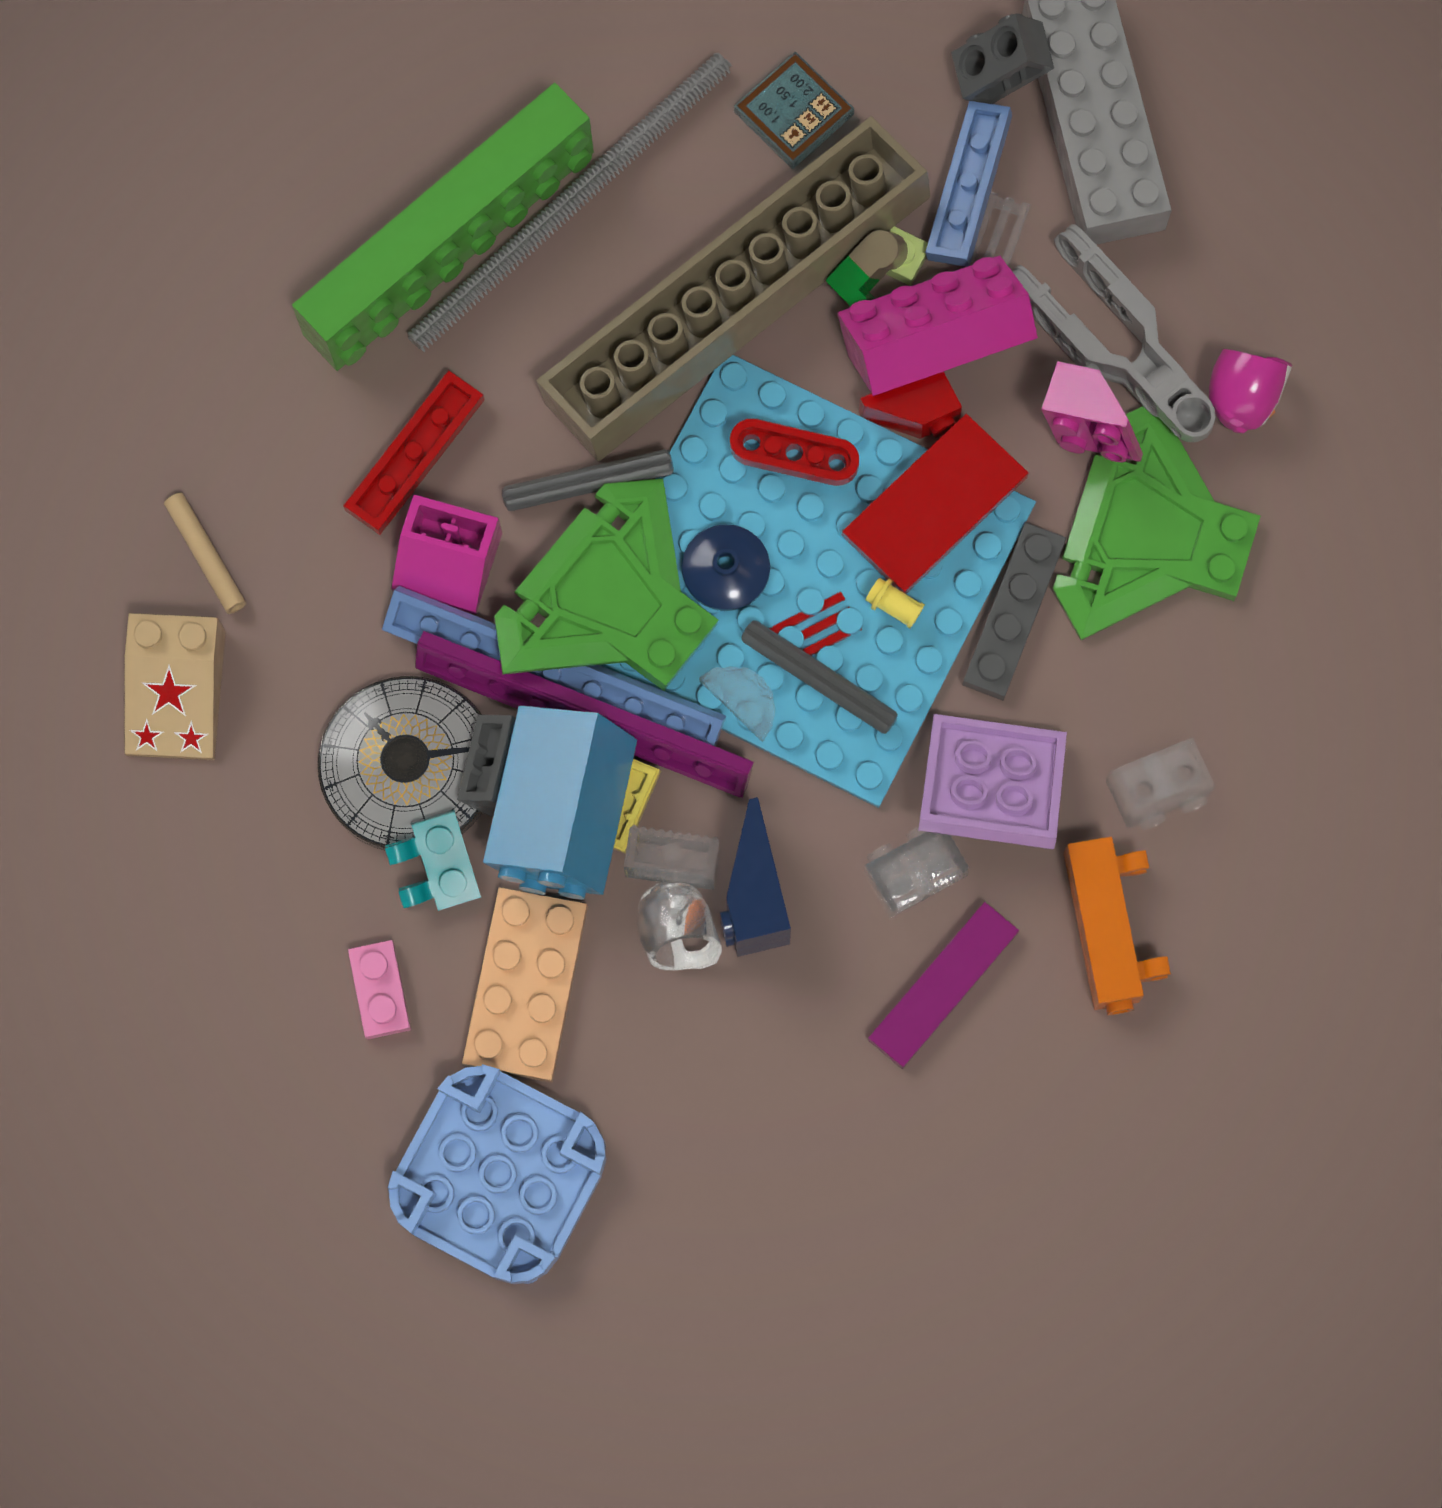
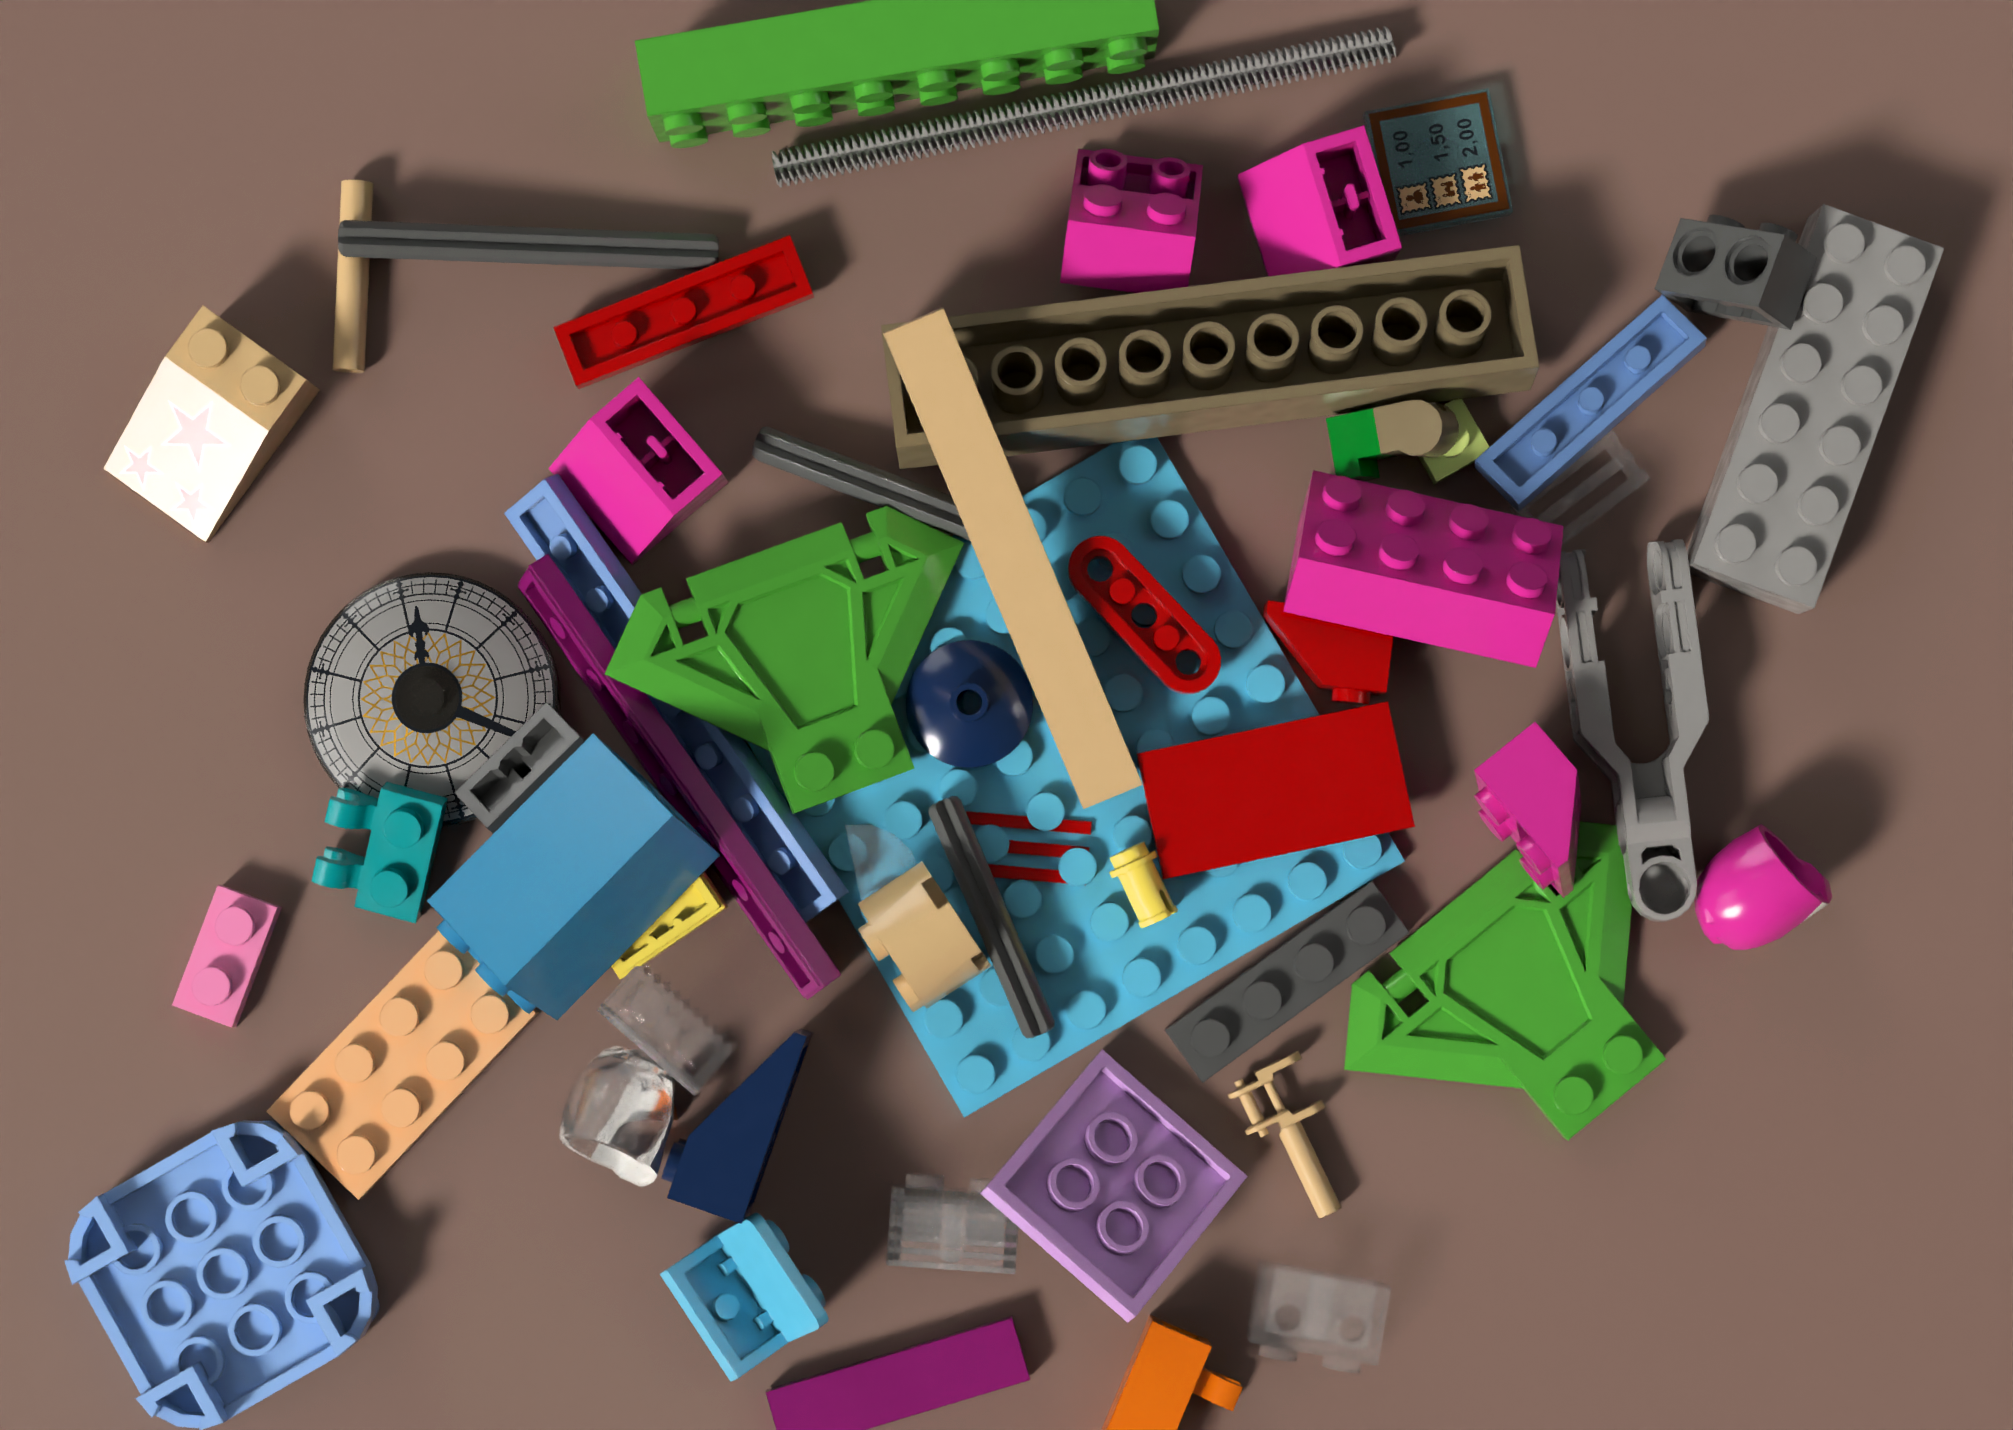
camera: 30 degrees right, 10 degrees up
(297, 470) = (527, 245): none -> dark grey axle
(640, 244) = (1131, 222): none -> dark pink slope
(699, 460) = (1012, 557): none -> tan tile
(742, 166) = (1320, 206): none -> dark pink slope
(788, 707) = (922, 936): none -> tan cylinder
(820, 980) = (746, 1294): none -> medium azure bracket
(1075, 694) = (1291, 1133): none -> tan piece

